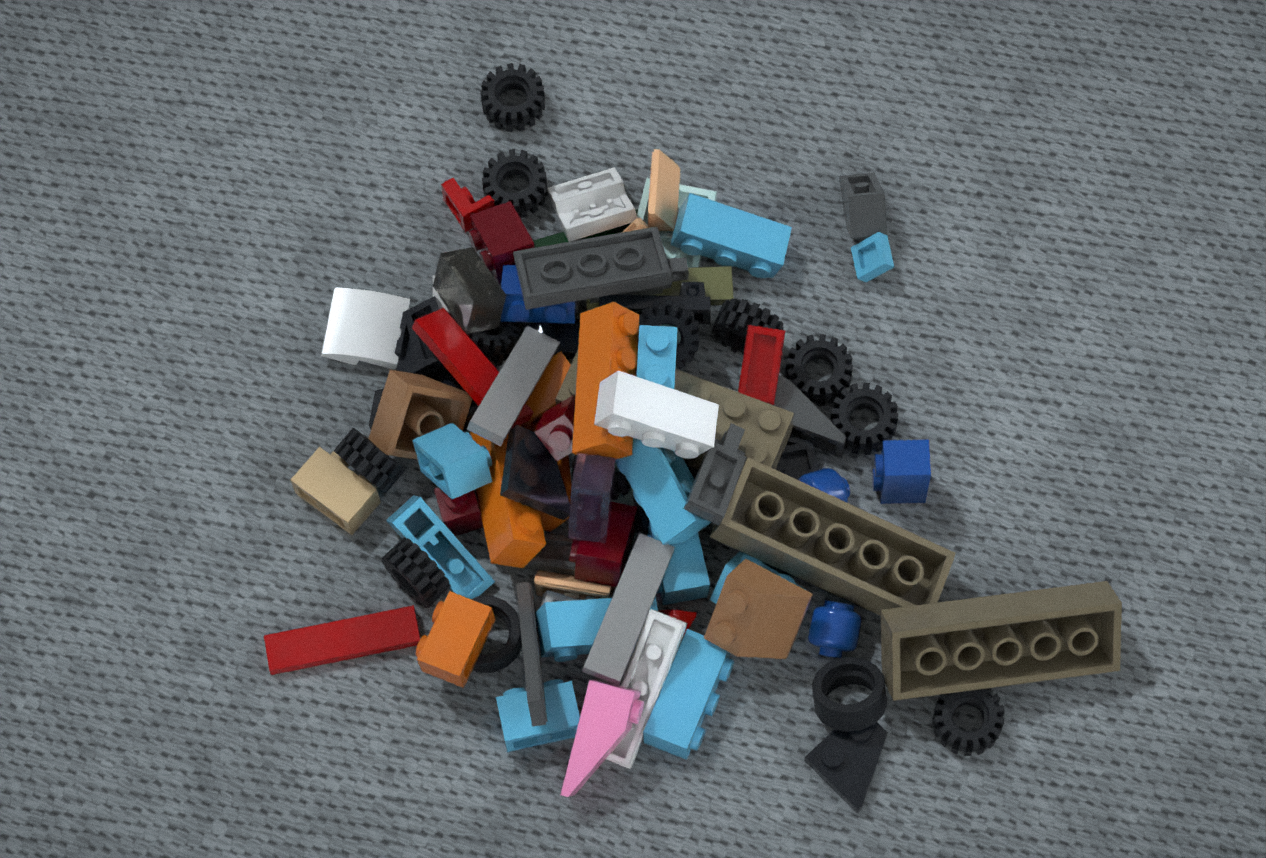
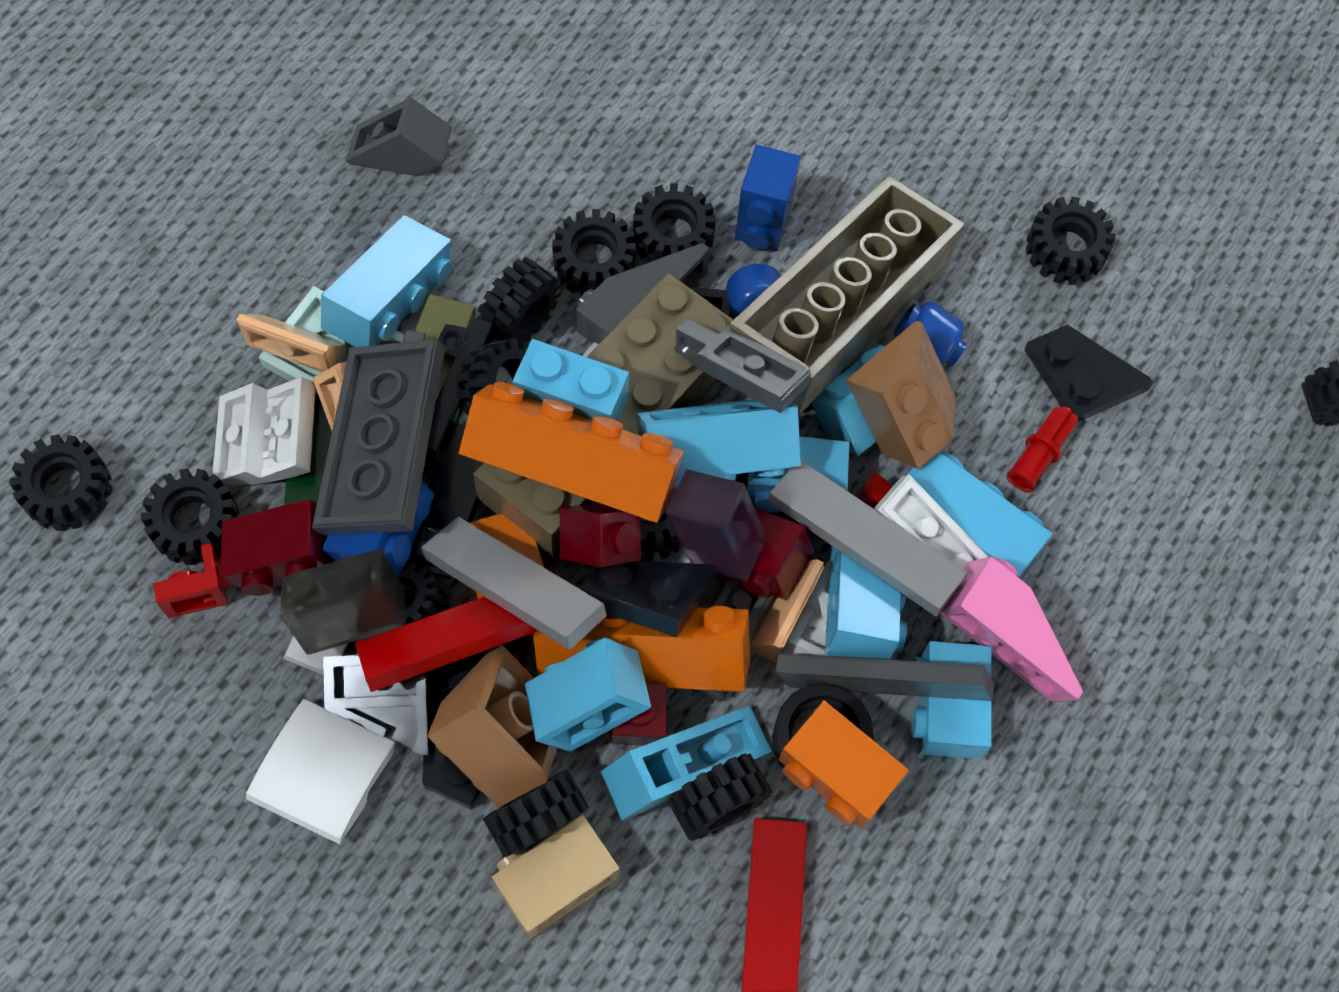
camera: 80 degrees left, 0 degrees up
(656, 415) = (654, 396): white brick -> none
(761, 363) = (585, 290): red tile -> none
(770, 738) = (1042, 449): none -> red axle
(849, 716) = (1009, 313): black tyre -> none
(872, 257) = (471, 154): medium azure plate -> none
(1001, 640) = (1009, 168): dark tan brick -> none

